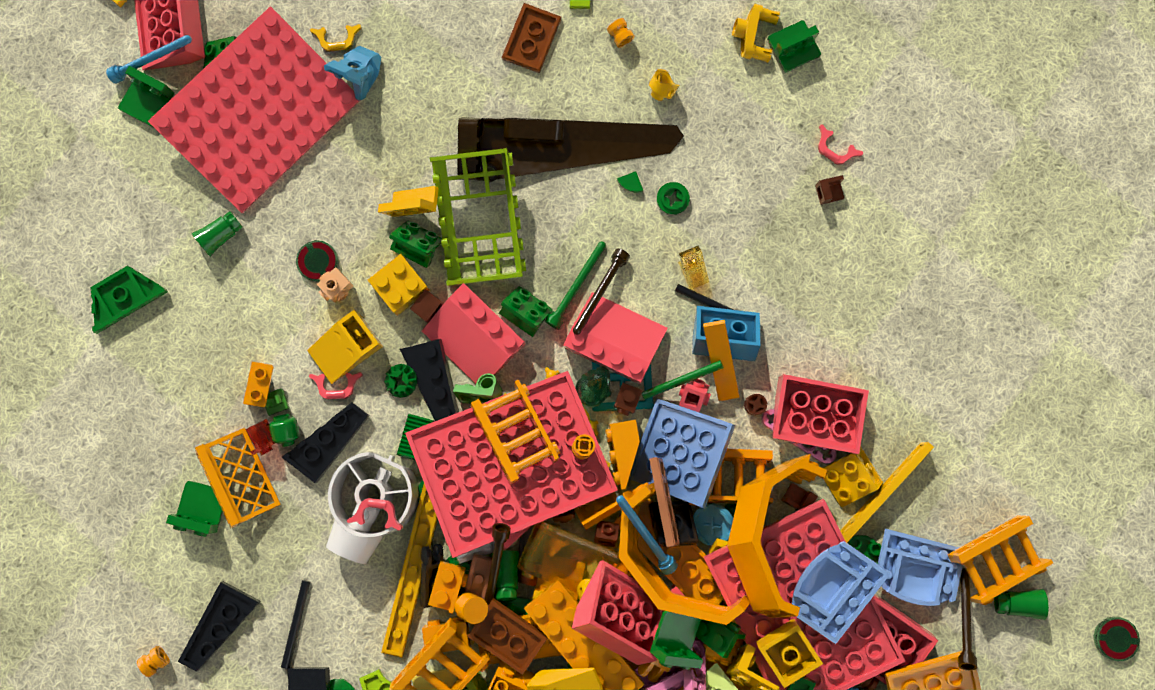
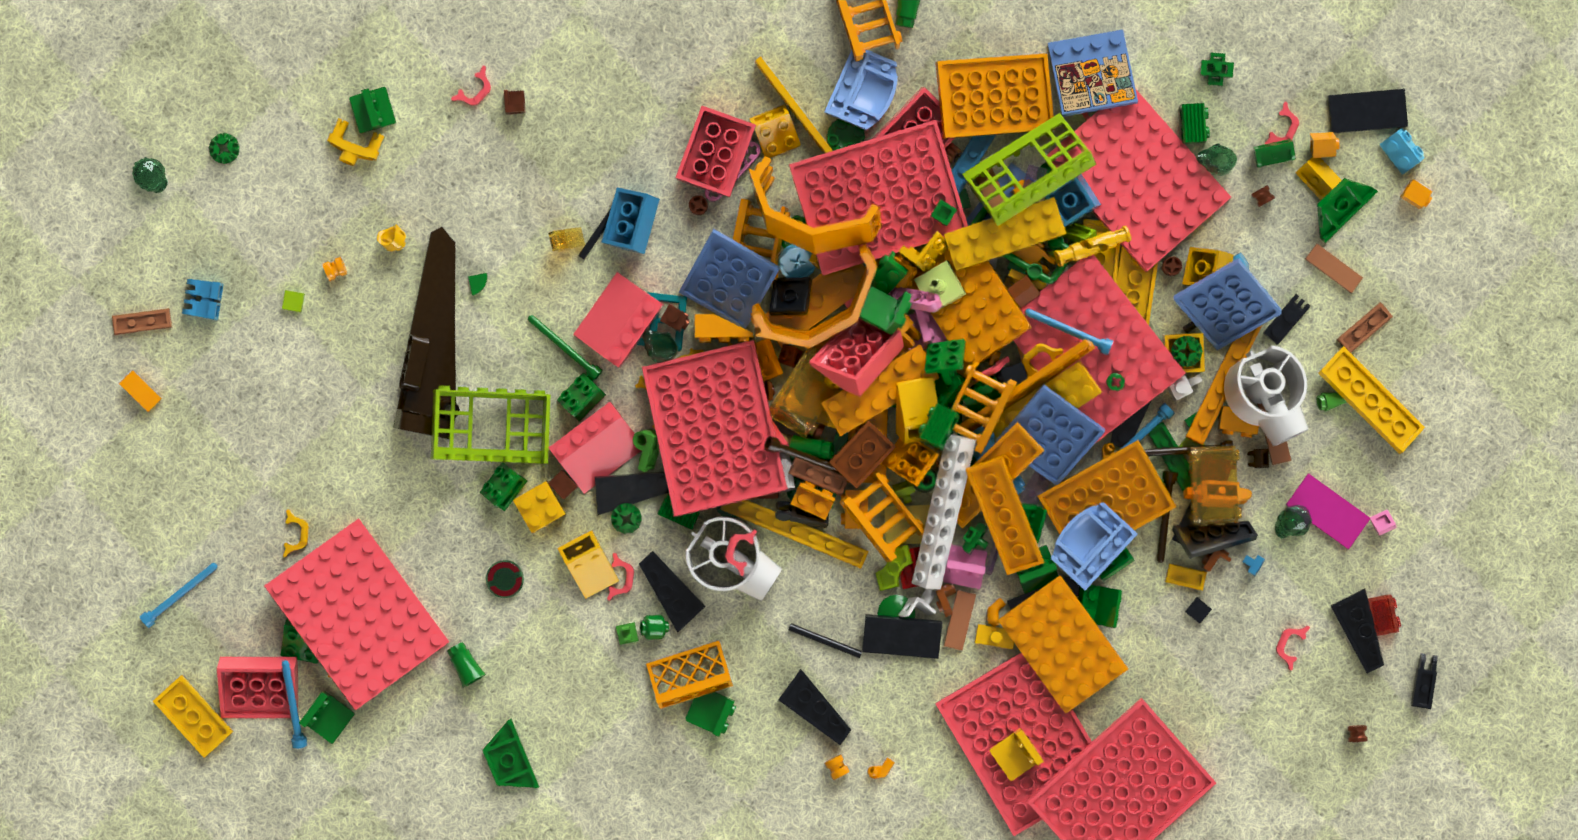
camera: 80 degrees left, 5 degrees up
(258, 384) = (610, 643): light orange bracket -> none
(260, 437) = (657, 648): clear red bracket -> none
(341, 288) = (524, 562): light nougat brick -> none
(361, 77) = (323, 508): dark azure piece -> none
(411, 202) = (466, 483): yellow panel -> none
(471, 608) = (832, 481): light orange piece -> none
(503, 449) = (702, 433): light orange fence -> none
(531, 38) = (325, 352): dark orange tile -> none
(580, 444) = (714, 363): light orange wheel -> none
(619, 258) = (546, 305): dark brown piece -> none
(664, 502) = (769, 301): nougat tile -> none
(665, 562) = (823, 308): dark azure piece -> none
(681, 194) = (489, 249): green gear -> none
(682, 379) = (666, 267): green bar -> none
(694, 395) = (681, 258): coral brick -> none
(719, 349) = (654, 230): light orange tile -> none
(789, 653) = (911, 217): yellow brick -> none
(798, 497) = (785, 182): copper panel -> none
(836, 589) = (865, 169): light blue slope -> none
(966, 659) = (940, 68): dark brown piece -> none

